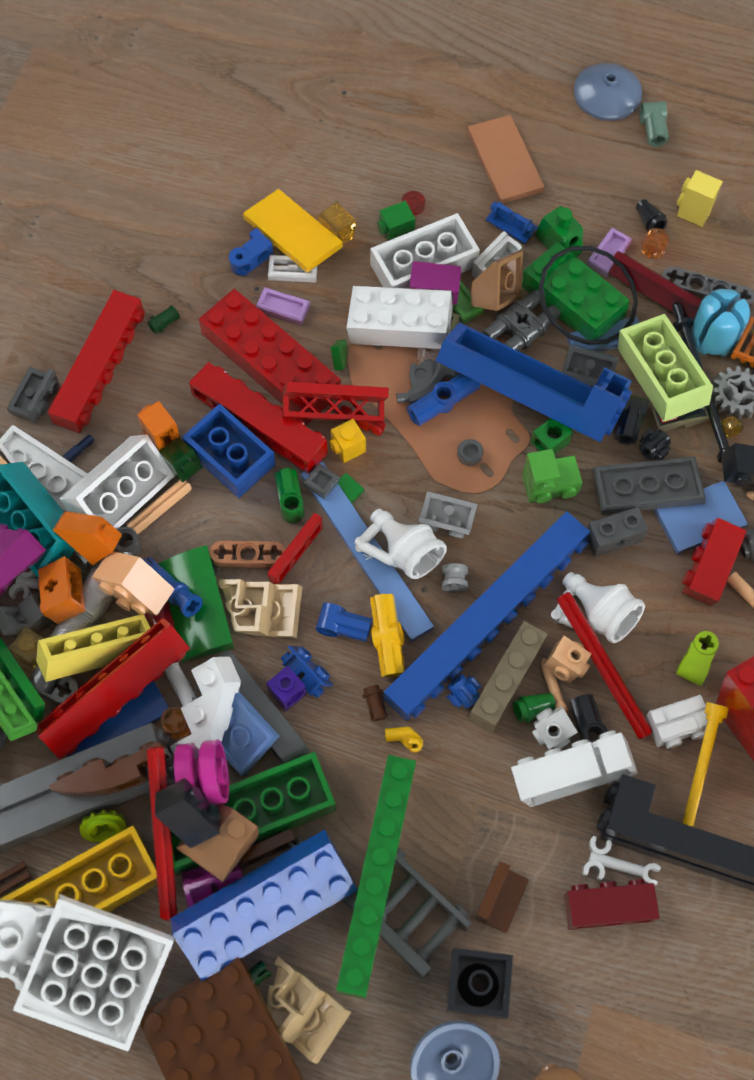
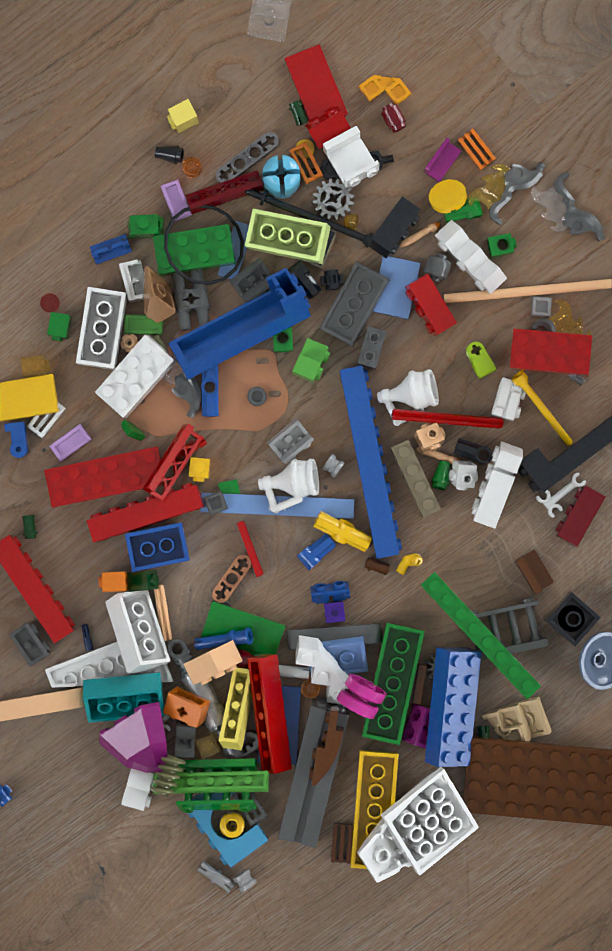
camera: 55 degrees left, 20 degrees up
(88, 535) = (165, 671): orange slope -> none
(101, 826) = (346, 767): lime gear -> none
(162, 837) = (379, 738): red axle -> none
(187, 813) = (382, 719): black brick -> none
(224, 851) = (402, 710): medium nougat slope -> none
(263, 607) = (273, 592): tan slope -> none
(289, 494) = (208, 527): green piece -> none
(436, 277) = (127, 336): magenta panel -> none
(464, 691) = (406, 510): blue gear -> none
(505, 159) = (57, 215): nougat tile -> none
(607, 91) = (59, 112): sand blue dish -> none
(654, 118) = (96, 91): sand green piece -> none

